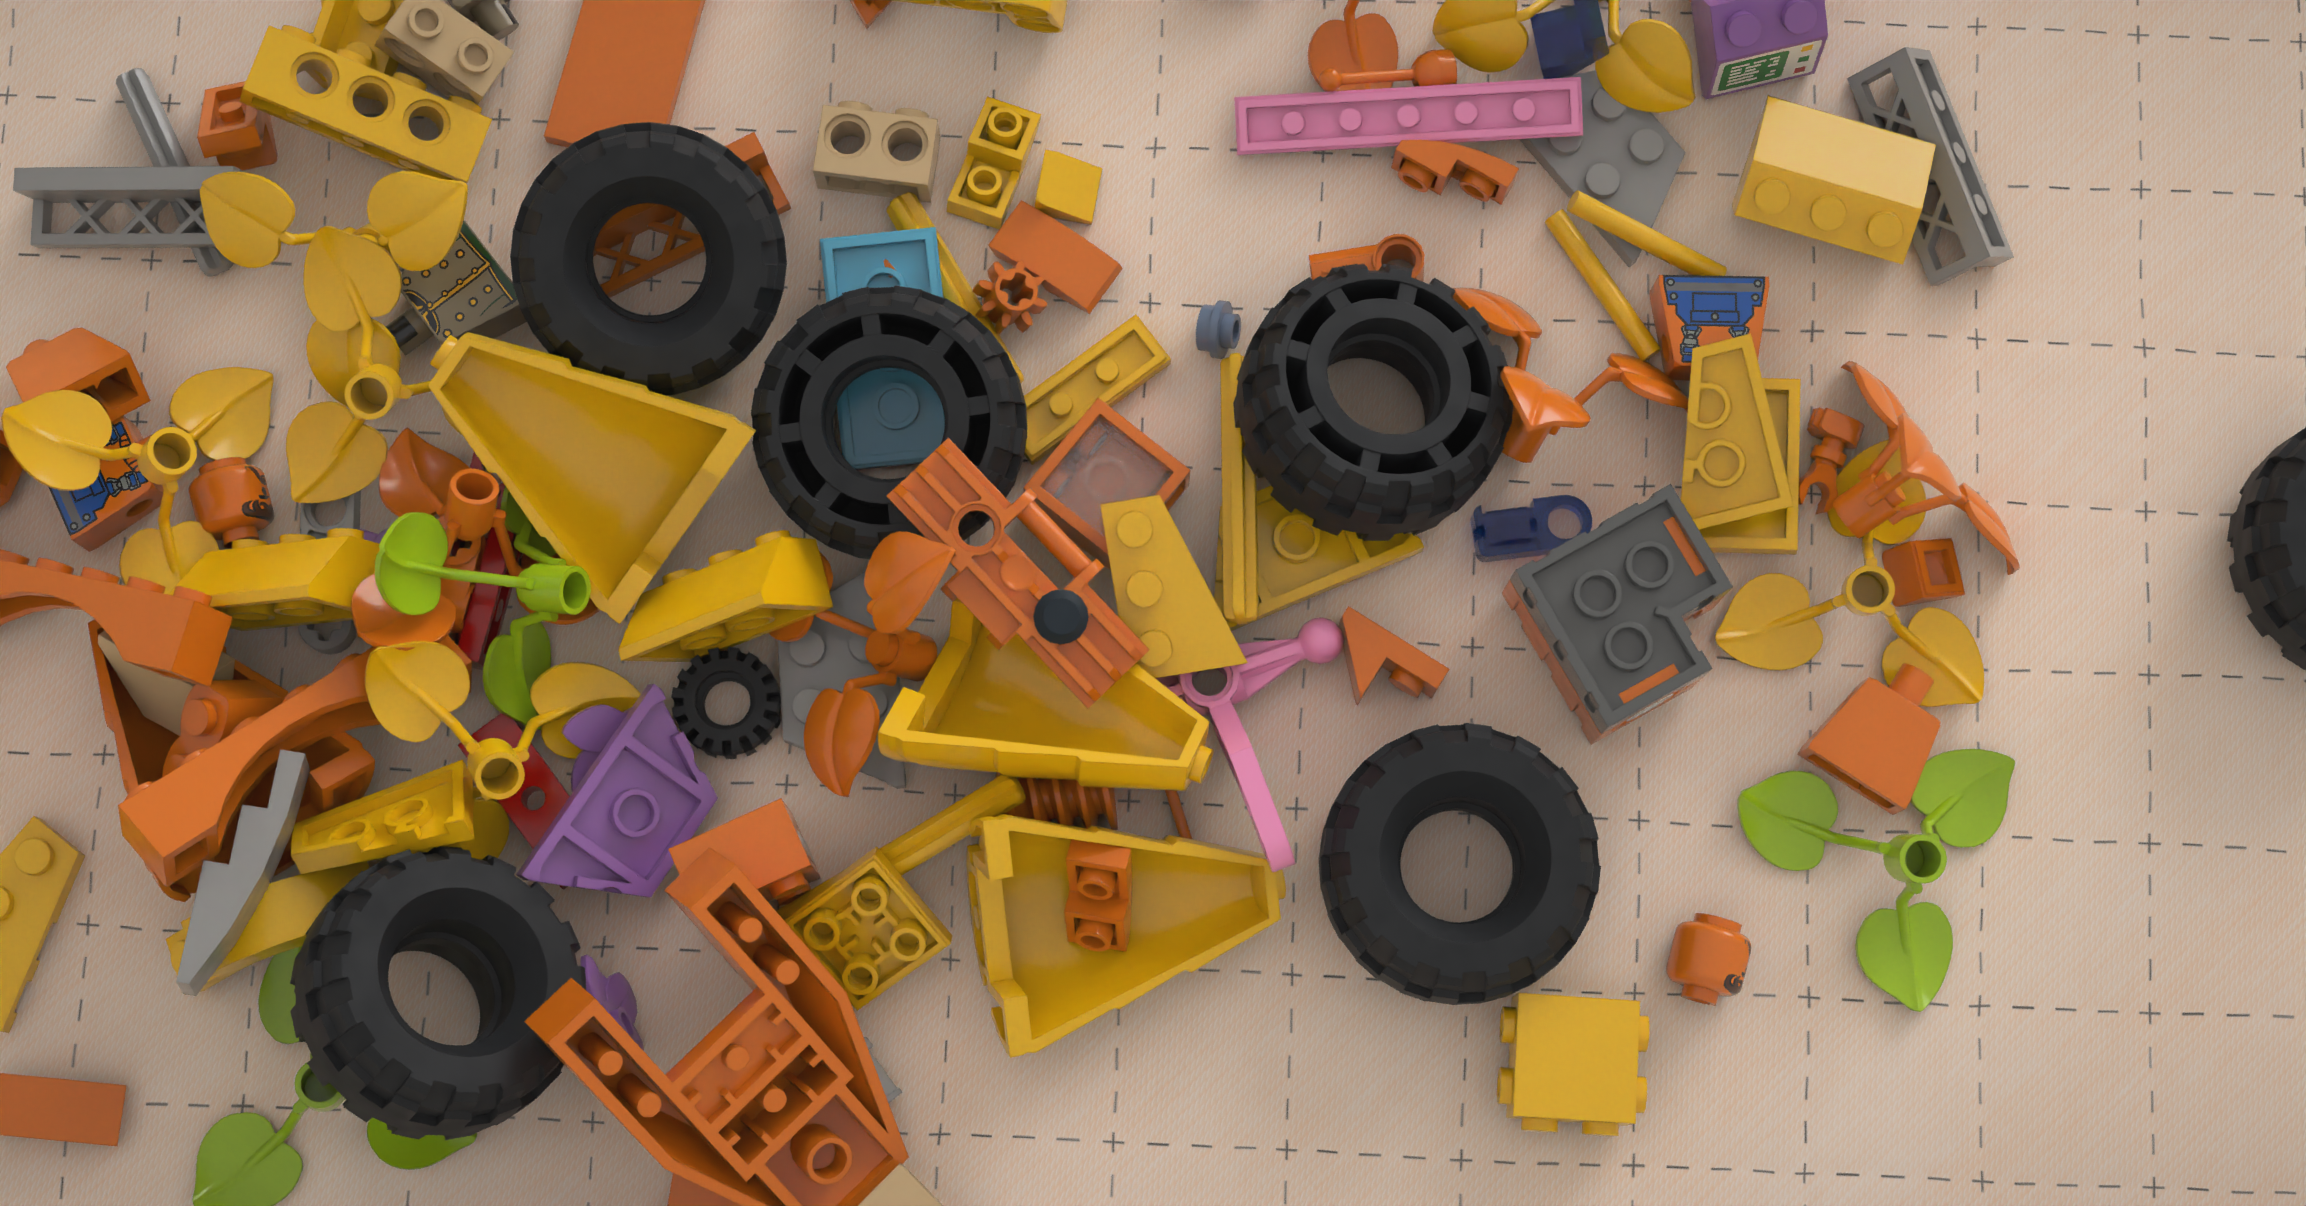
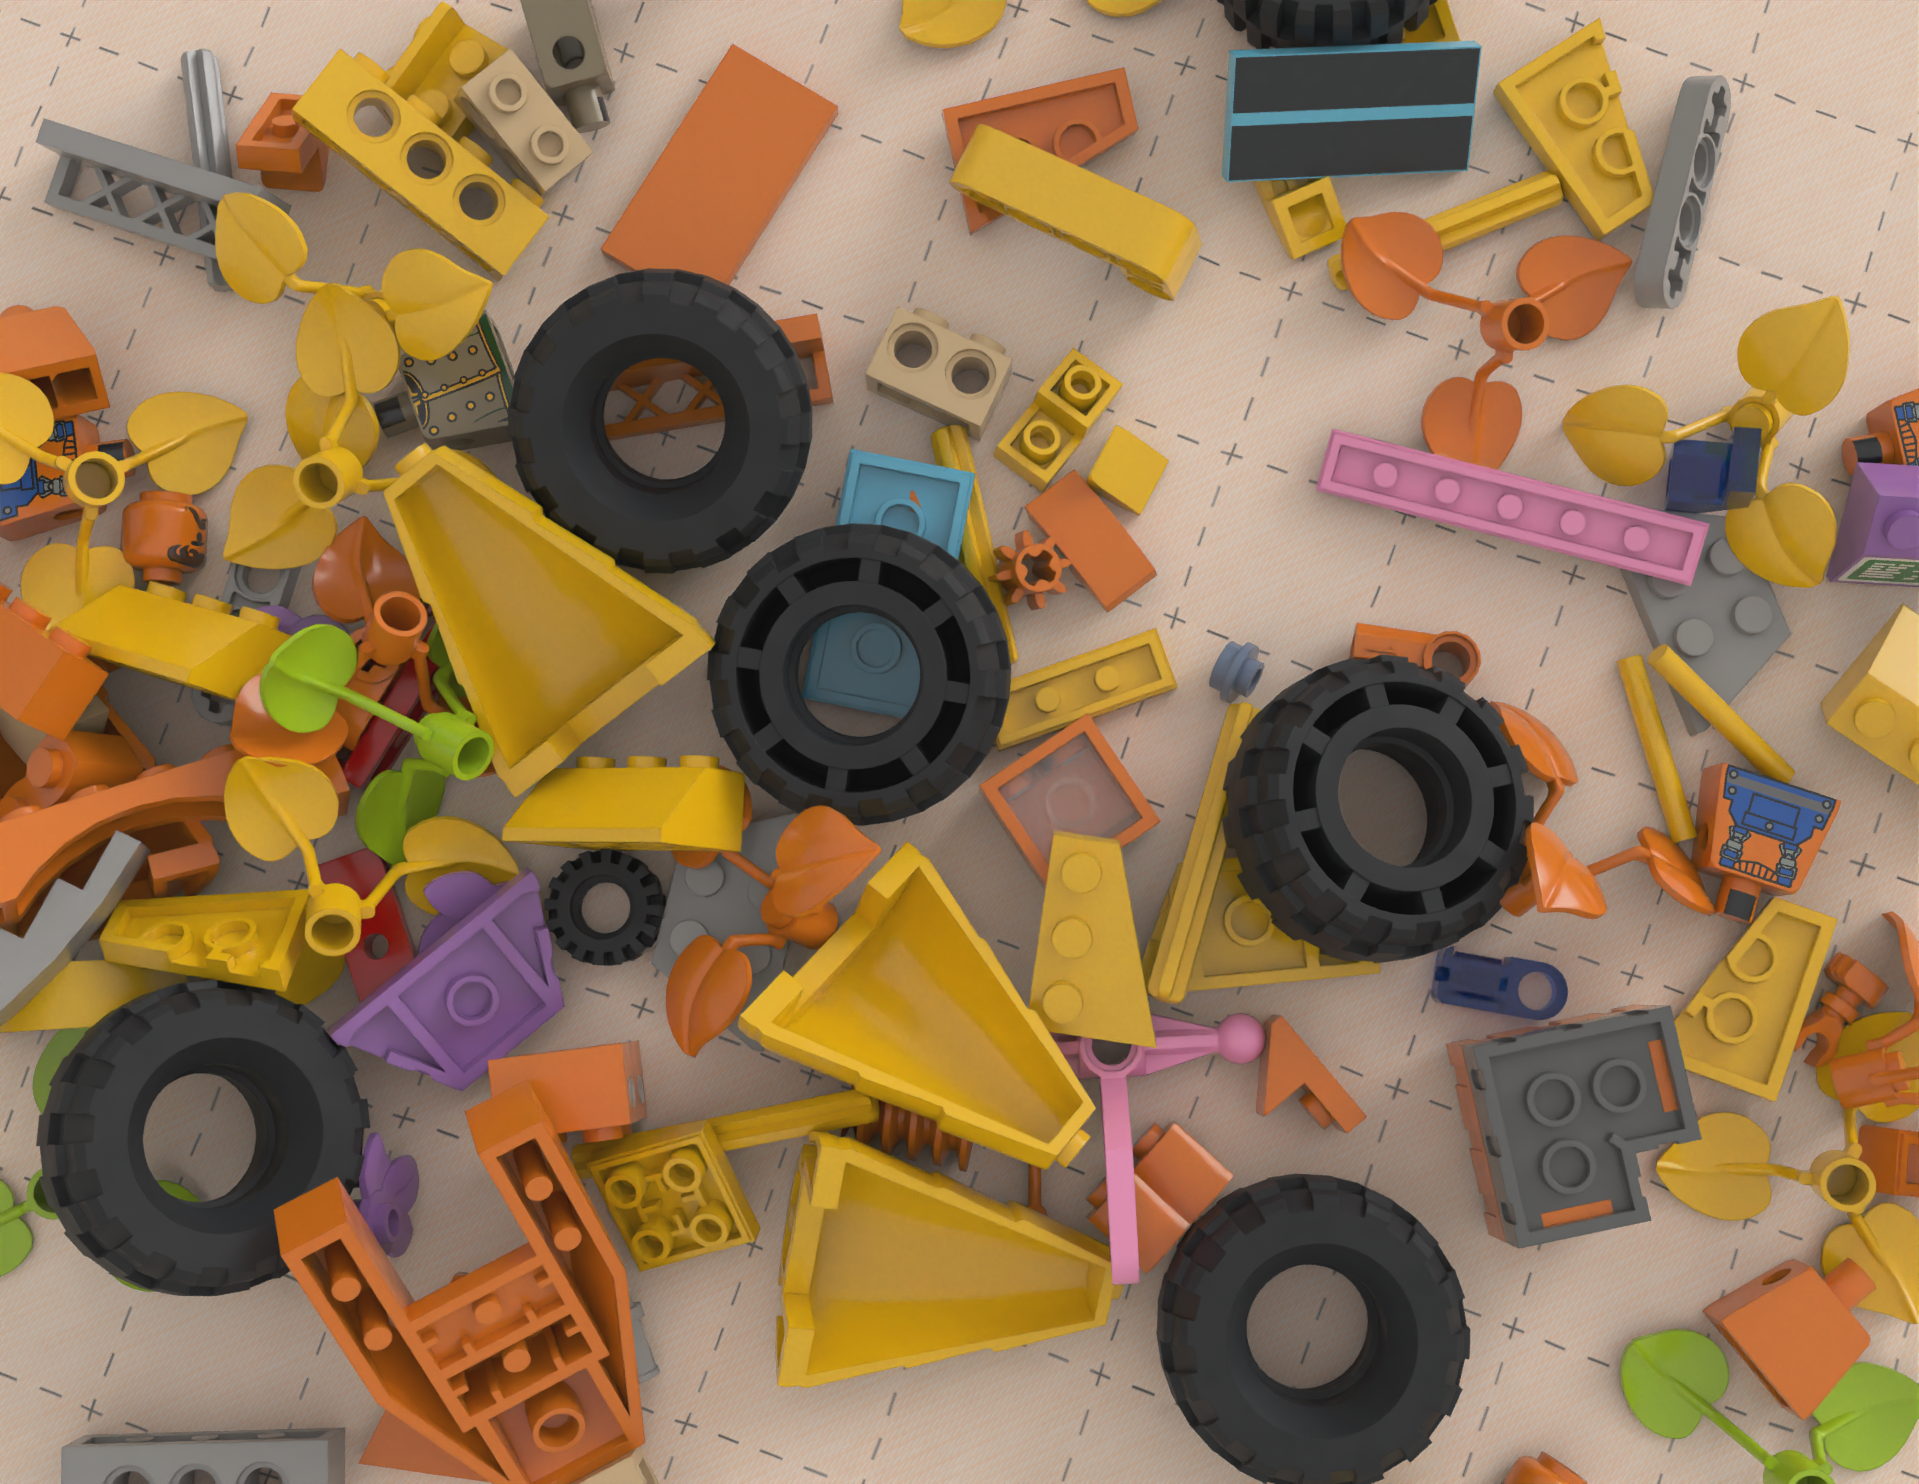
camera: 20 degrees right, 5 degrees up
(1002, 585) = (924, 897): orange piece -> none
(1099, 895) = (922, 1245): orange slope -> none
(1302, 785) = (1172, 1189): none -> orange brick
(1429, 69) = (1547, 462): orange hinge -> none
(1433, 163) = (1517, 565): orange slope -> none
(1731, 441) = (1745, 964): yellow wing -> none

